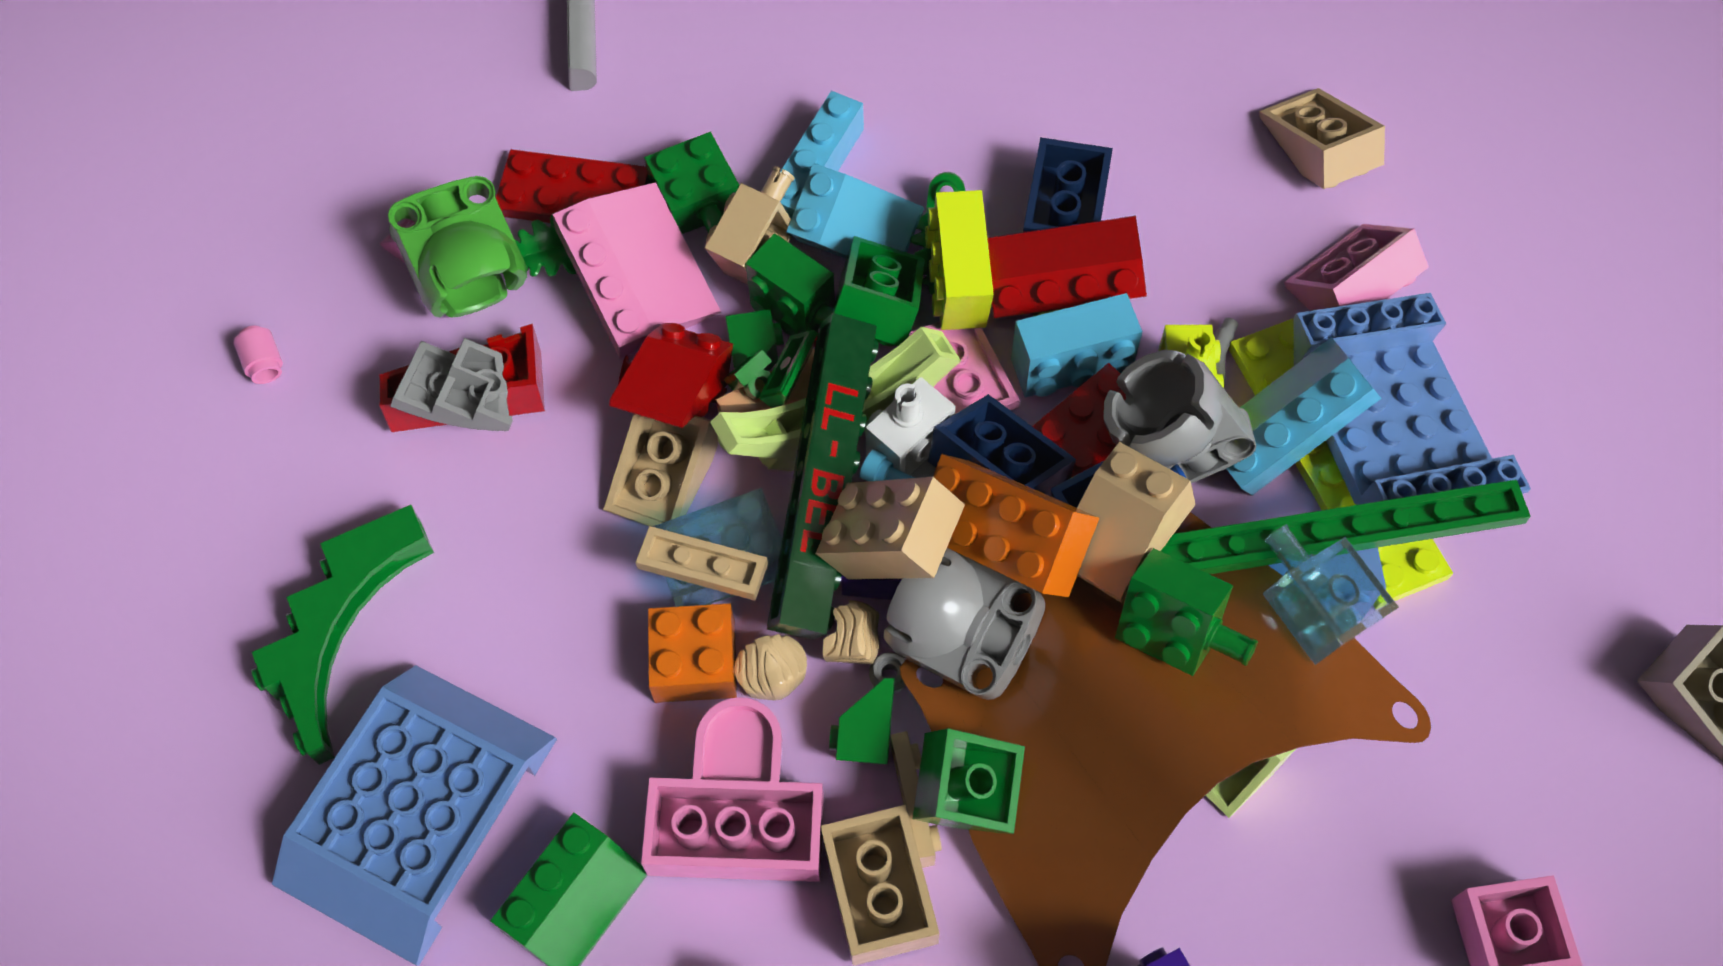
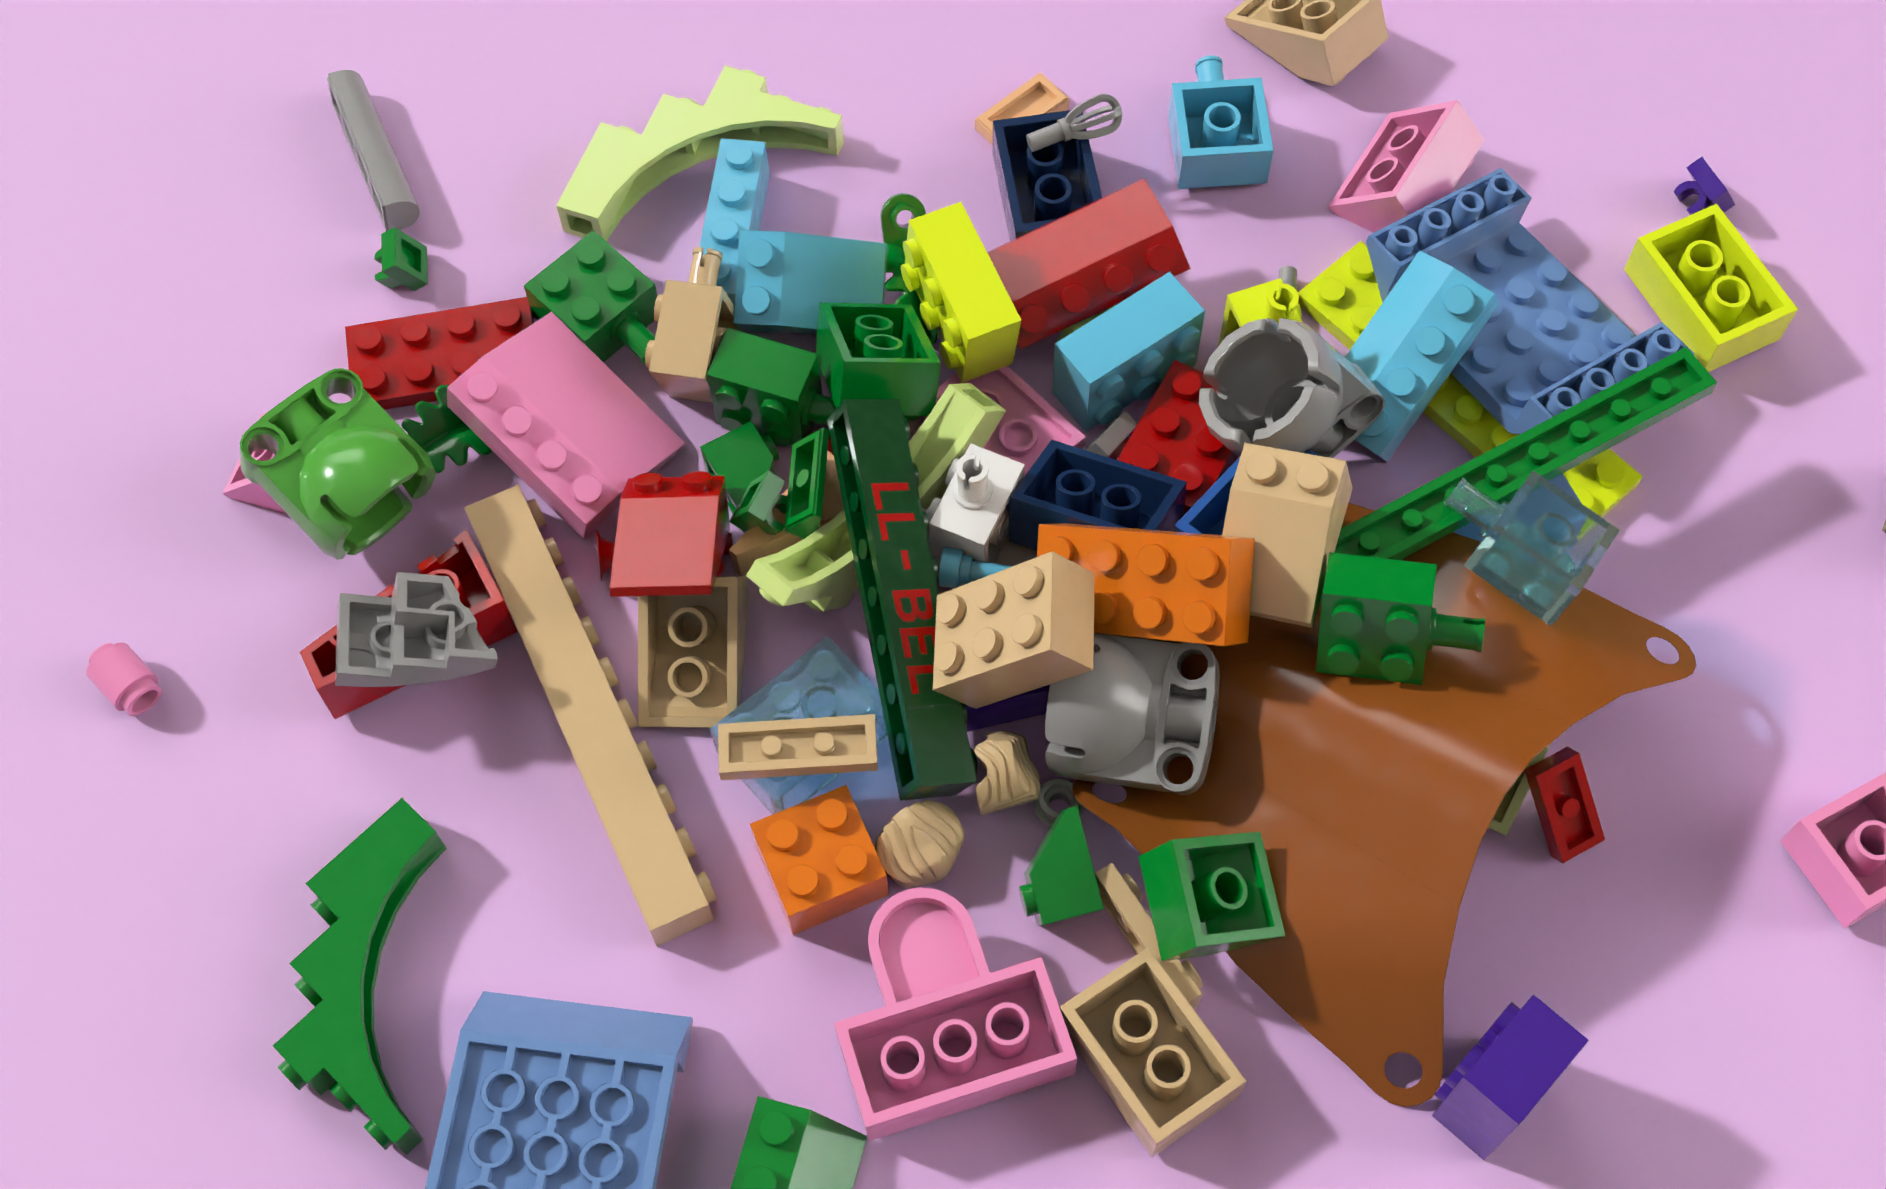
camera: 20 degrees left, 0 degrees up
(569, 113) = (402, 261): none -> green tile
(570, 492) = (591, 718): none -> tan brick
(806, 79) = (627, 165): none -> yellowish green arch
(1039, 408) = (1113, 437): none -> light grey plate
(1084, 130) = (1031, 98): none -> light nougat tile
(1096, 159) = (1070, 126): none -> light grey piece
(1218, 196) = (1219, 129): none -> medium azure brick
(1281, 809) = (1564, 804): none -> red plate
(1567, 441) = (1710, 287): none -> neon yellow brick
(1600, 361) = (1707, 186): none -> dark purple tile

